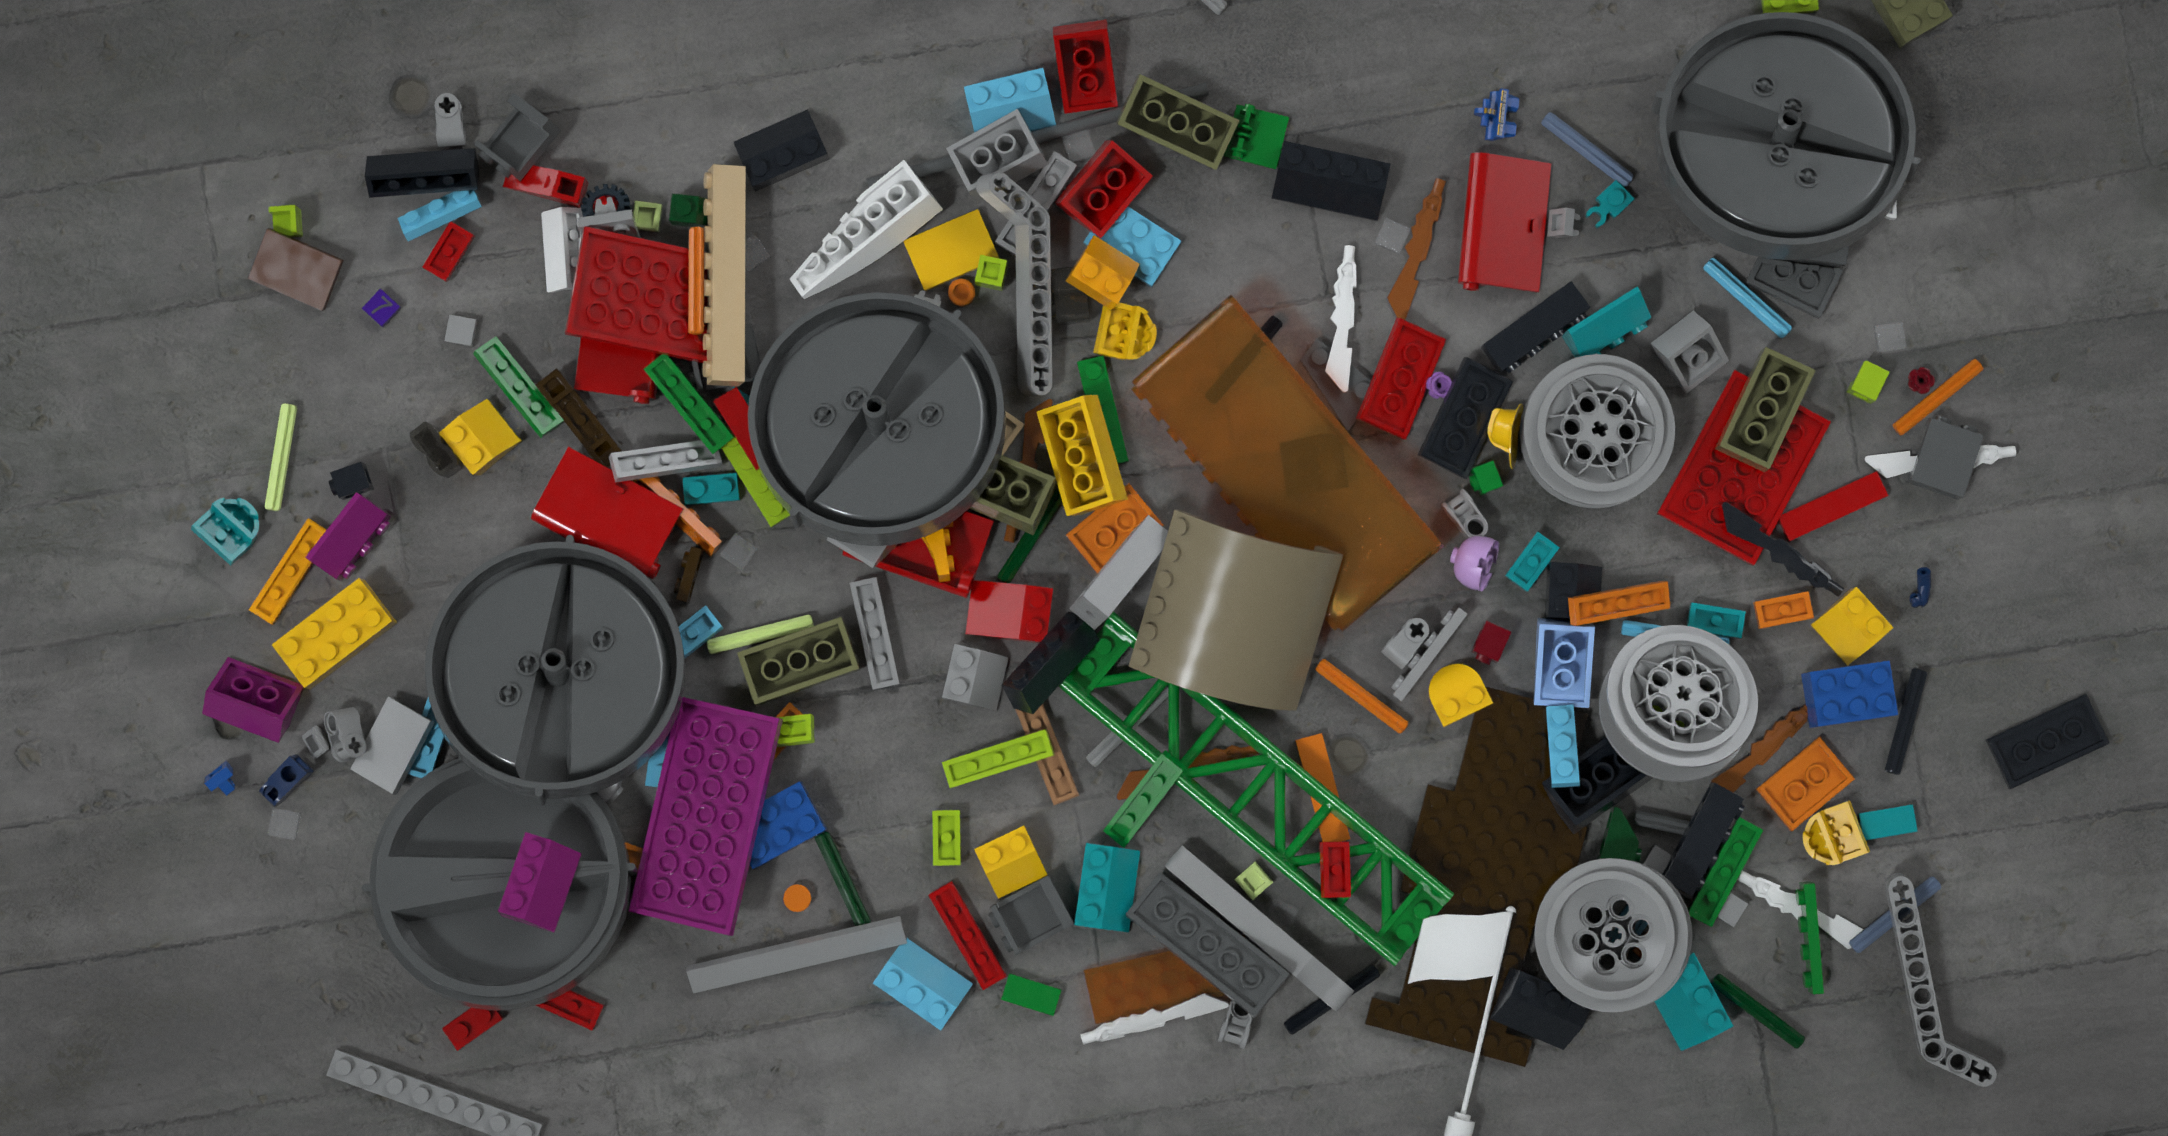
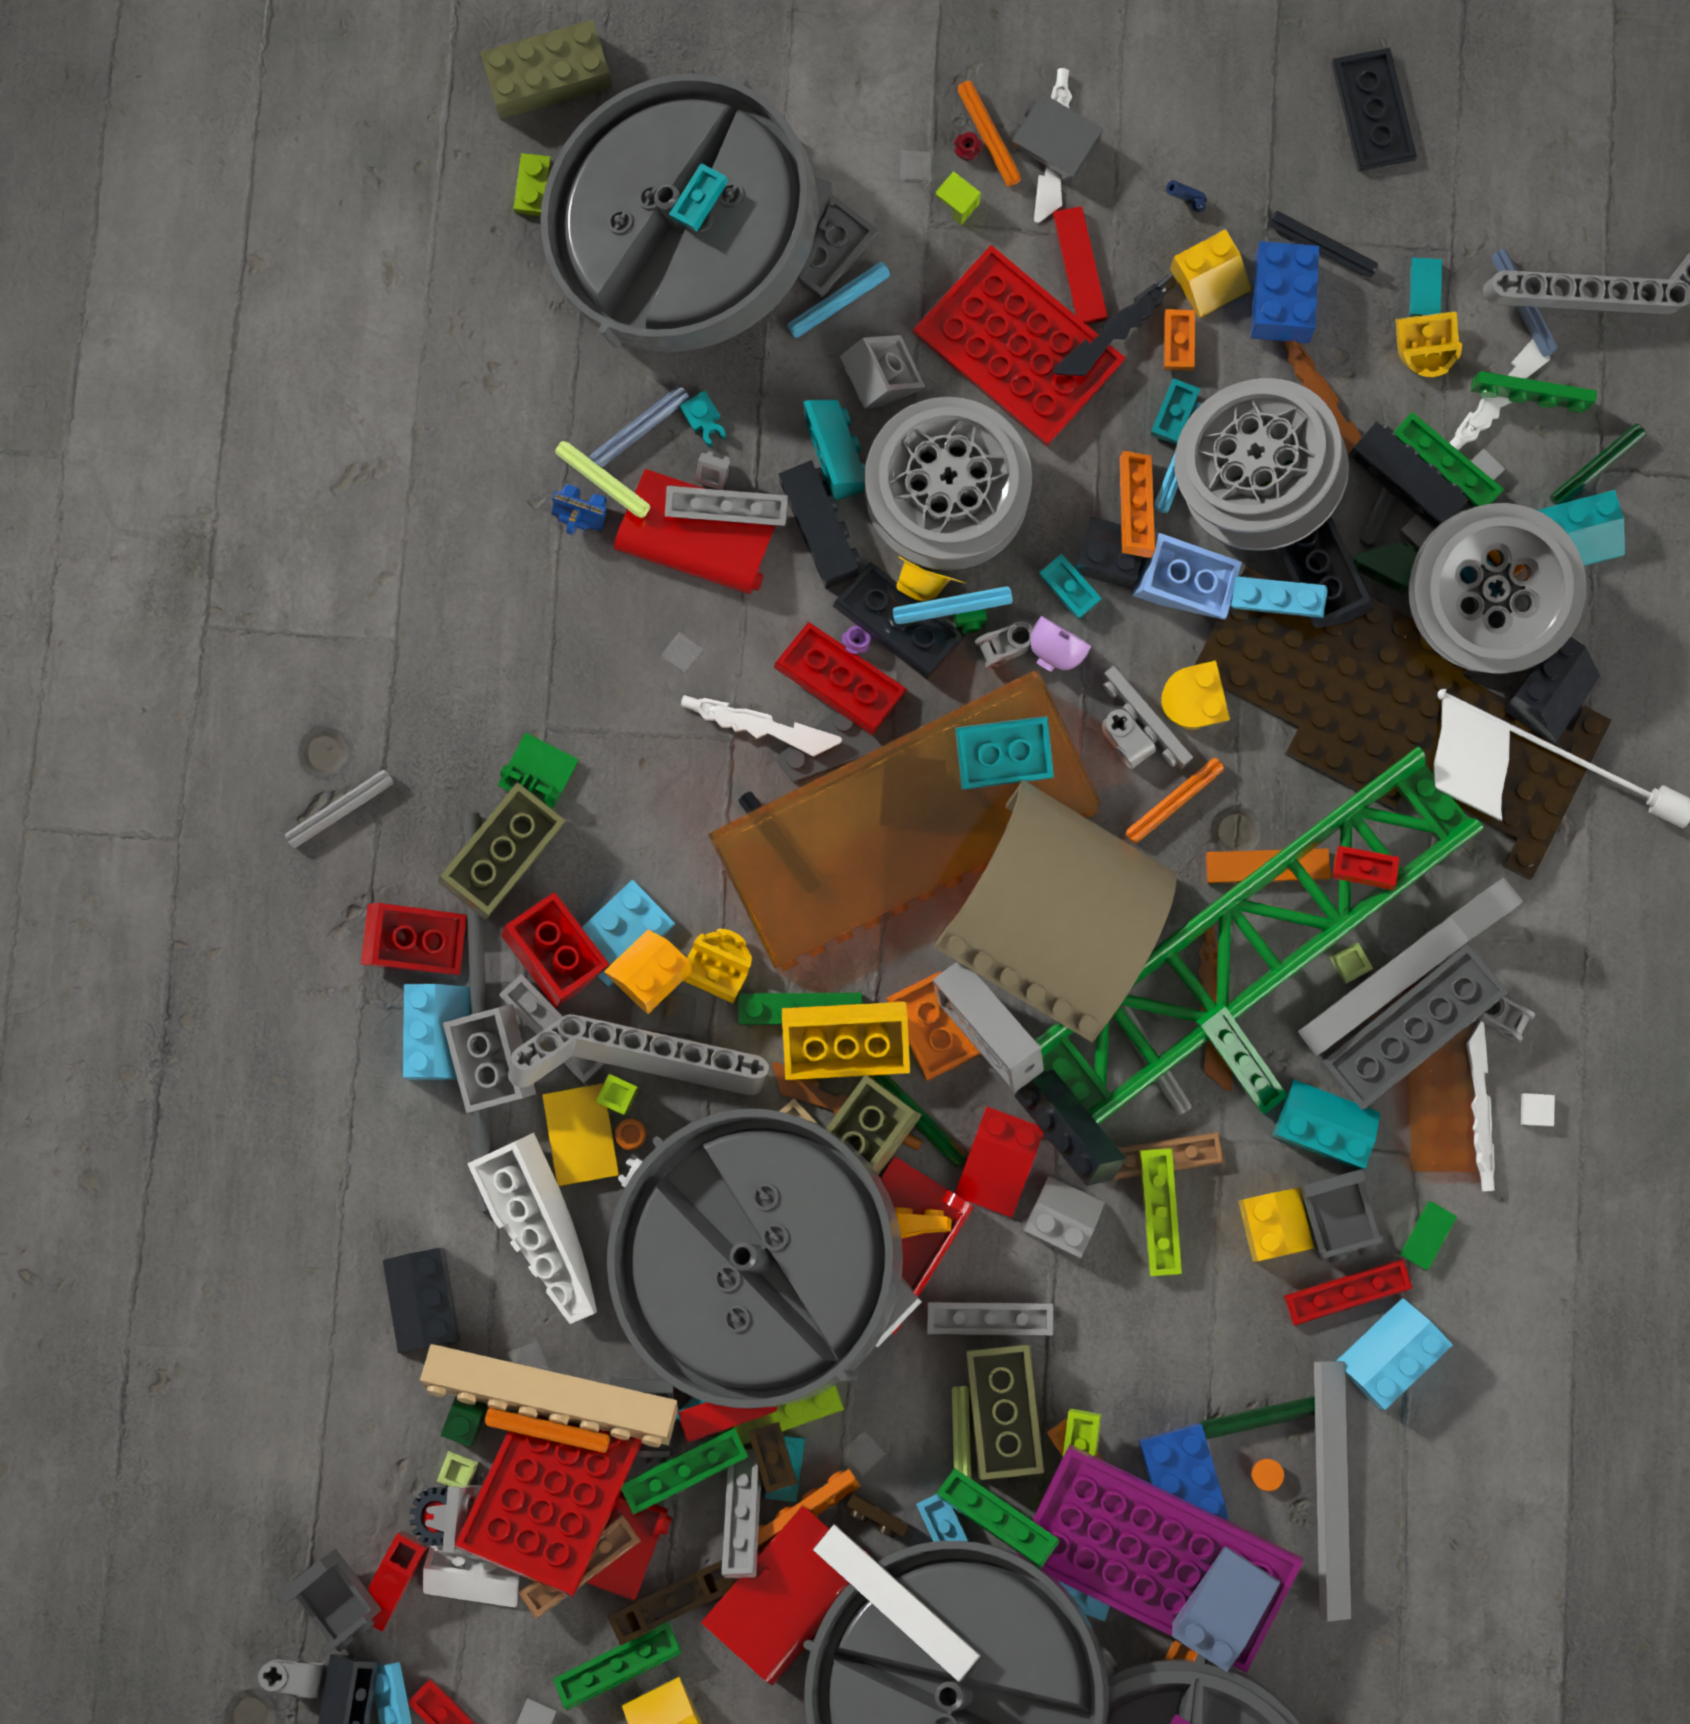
camera: 80 degrees left, 5 degrees down
(614, 357) = (614, 1542): none -> medium nougat tile
(620, 602) = (897, 1603): none -> white tile
(676, 878) = (1224, 1608): none -> sand blue slope
(708, 673) = (998, 1518): none -> green plate
(717, 475) = (773, 1457): none -> dark brown plate
(946, 837) = (1235, 1290): lime plate -> none
(1162, 1068) = (1537, 1109): none -> white tile
(1319, 1007) = (1505, 925): black axle -> none
(1330, 181) = (606, 703): black slope -> none
(1362, 533) = (1004, 752): none -> teal tile
(1417, 249) = (702, 629): dark orange sword -> none
(1486, 460) = (952, 605): none -> medium azure axle
(1490, 643) = (1148, 650): dark red brick -> none
(1530, 128) = (602, 479): none -> yellowish green axle
(1531, 241) = (726, 505): none -> light grey plate
(1765, 409) = (965, 304): olive brick -> none
(1795, 148) = (698, 197): none -> teal plate
(1805, 784) = (1367, 362): orange tile -> none

